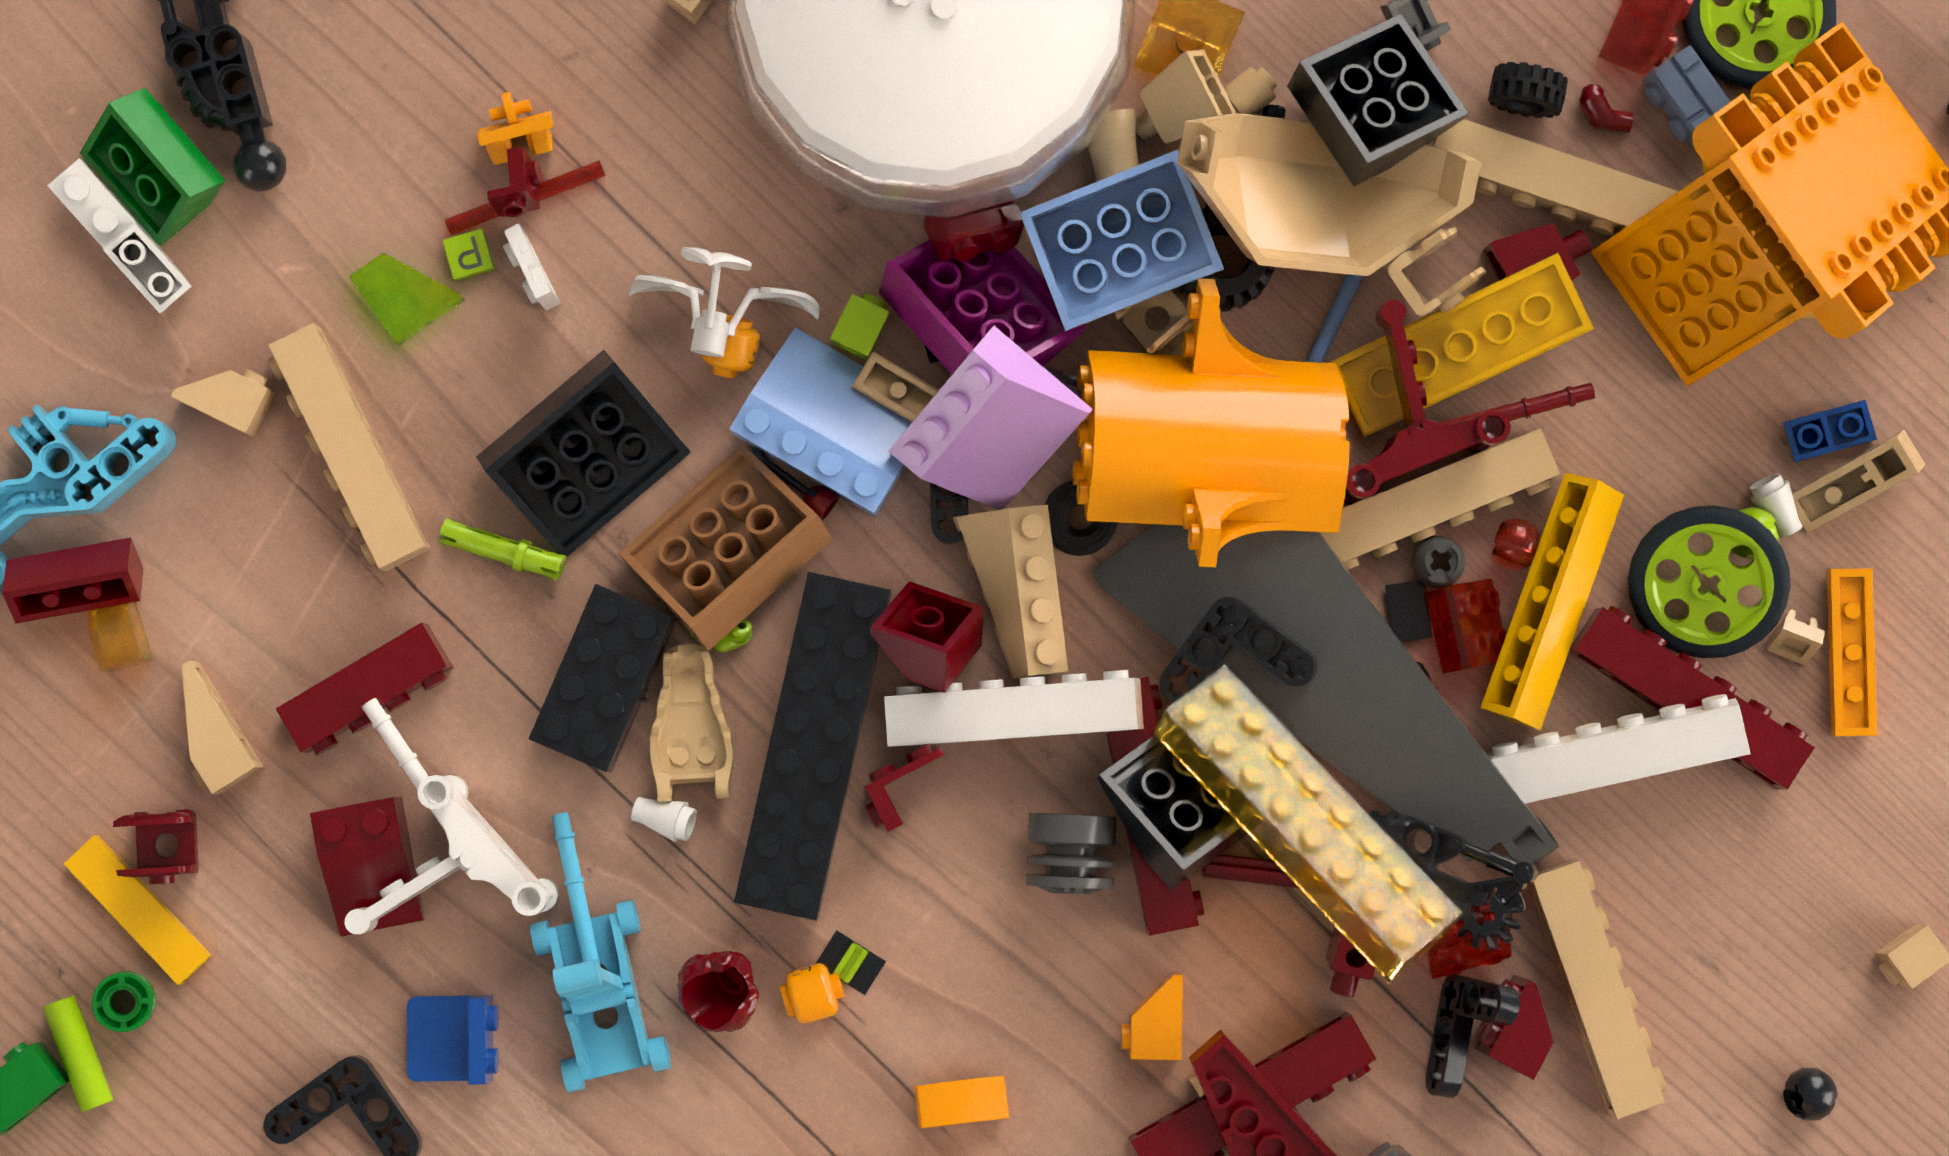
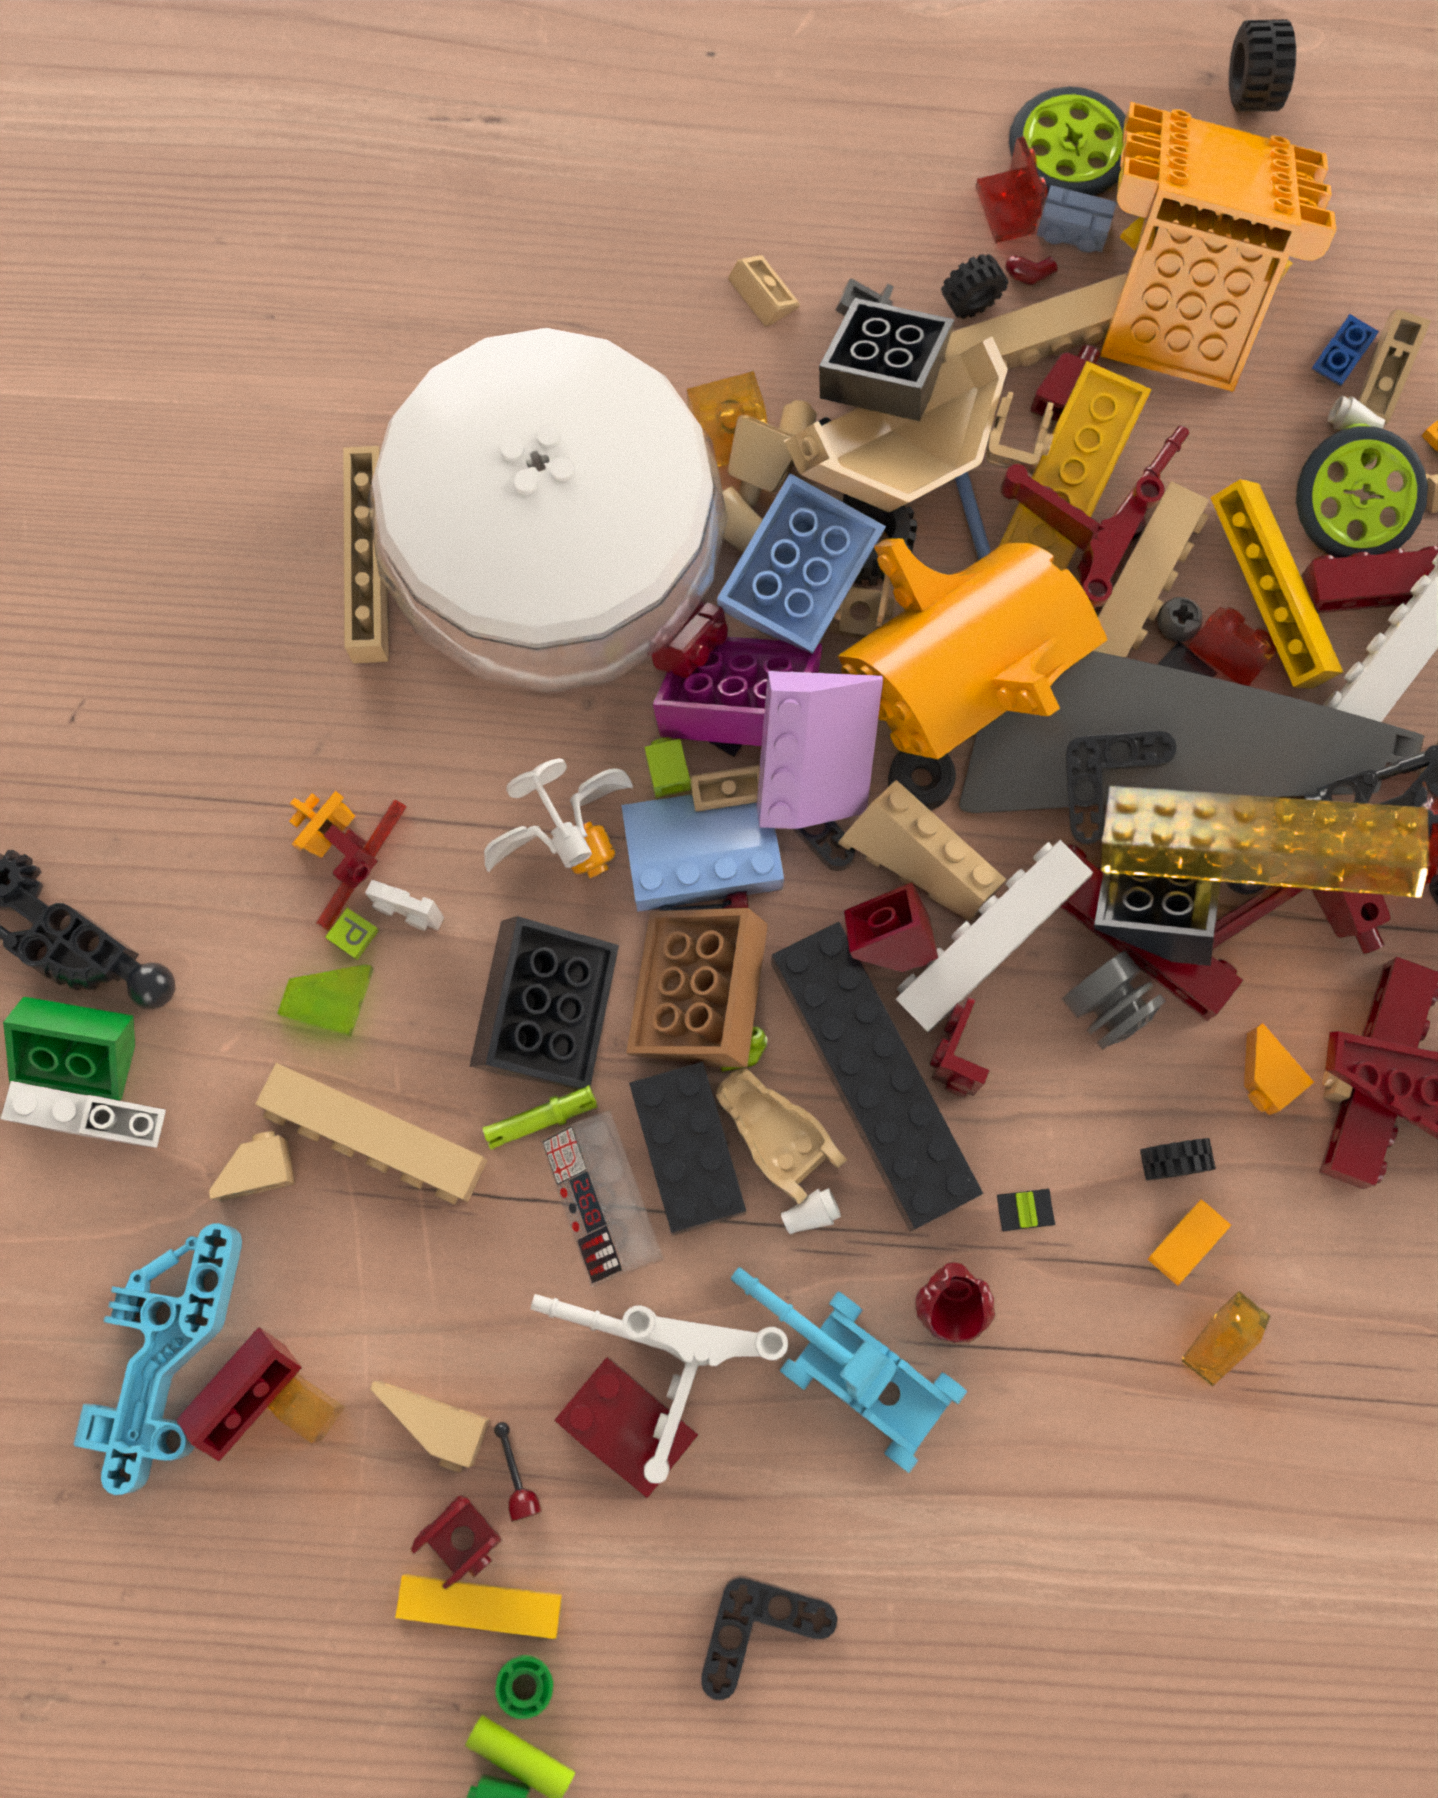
camera: 35 degrees left, 10 degrees down
(237, 856) = (523, 1501): none -> hinge
(383, 674) = (509, 1318): dark red brick -> none
(452, 1038) = (792, 1505): blue bracket -> none
(499, 662) = (601, 1199): none -> clear slope
(811, 993) = (1020, 1252): light orange head -> none
(1008, 1027) = (1177, 1159): none -> black tyre
(1515, 544) = (1218, 569): clear red piece -> none

